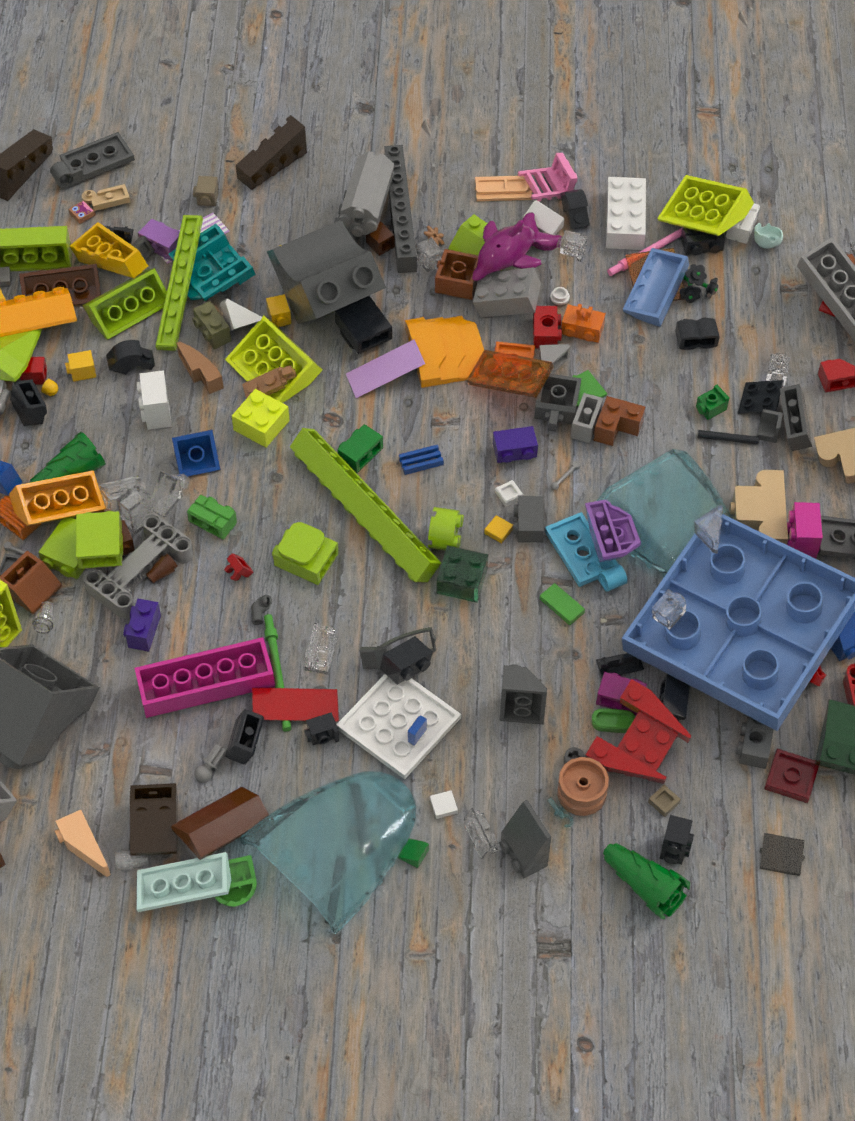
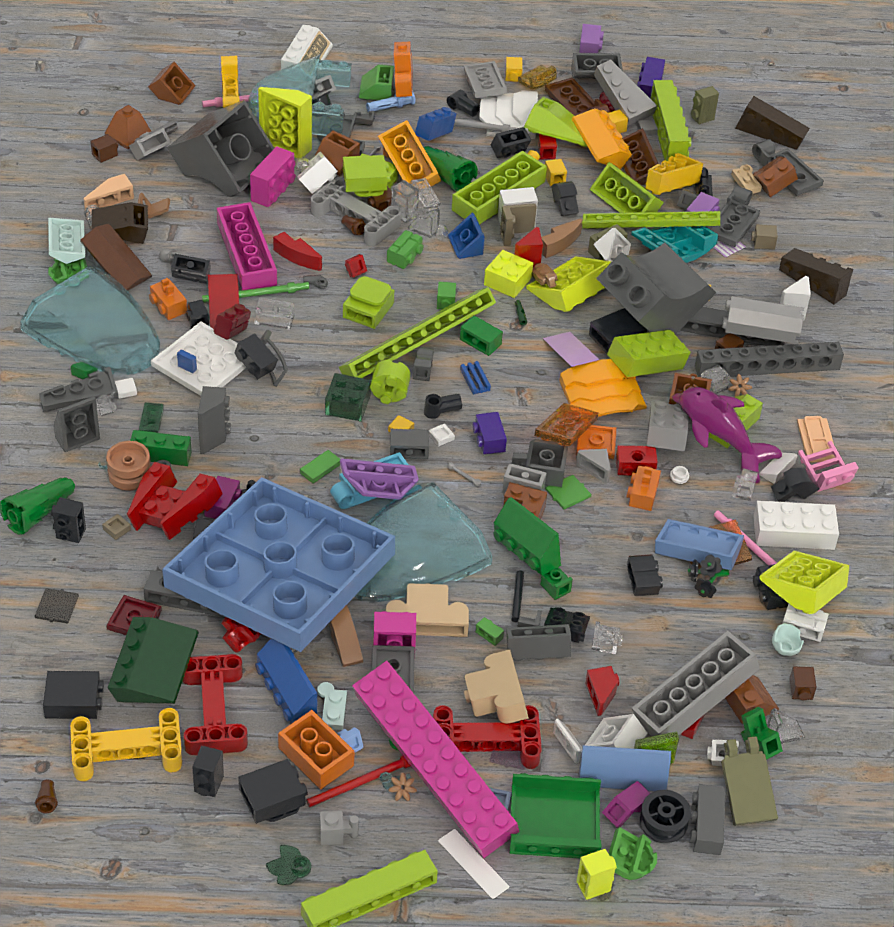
camera: 85 degrees right, 10 degrees down
(75, 595) = (317, 173): none -> white brick
(77, 648) = (272, 176): none -> dark pink brick
(81, 212) = (727, 166): nougat tile -> none
(109, 167) = (776, 175): none -> dark orange slope
(113, 418) = (483, 194): none -> lime brick
(115, 784) = (156, 208): none -> medium nougat bracket
(142, 625) = (298, 214): dark purple brick -> none
(166, 206) = (737, 210): none -> dark grey hinge
(182, 409) = (516, 220): none -> dark tan bracket
(210, 626) = (297, 251): none -> red slope
(228, 389) = (530, 247): none -> red slope
(293, 763) = (168, 299): none -> orange brick
(295, 478) = (446, 294): none -> bright green brick
(315, 414) = (520, 313): none -> dark green pin
(316, 171) = (797, 295): none -> white slope
(345, 687) = (232, 321): none -> dark red brick
(404, 300) = (648, 353): none -> lime brick
(407, 499) = (423, 364): none -> dark grey leg
(452, 848) = (77, 391): none -> dark grey wing
(469, 488) = (436, 404): none -> black piece
(498, 772) = (151, 417): none -> clear green plate
(549, 757) = (165, 446): none -> green brick
(669, 609) = (281, 498): clear brick -> none
(673, 413) = (527, 537): none -> green slope
(709, 528) = (365, 527): clear slope -> none
(778, 459) = (489, 631): none -> bright green piece
(814, 230) = (802, 683): none -> reddish brown brick

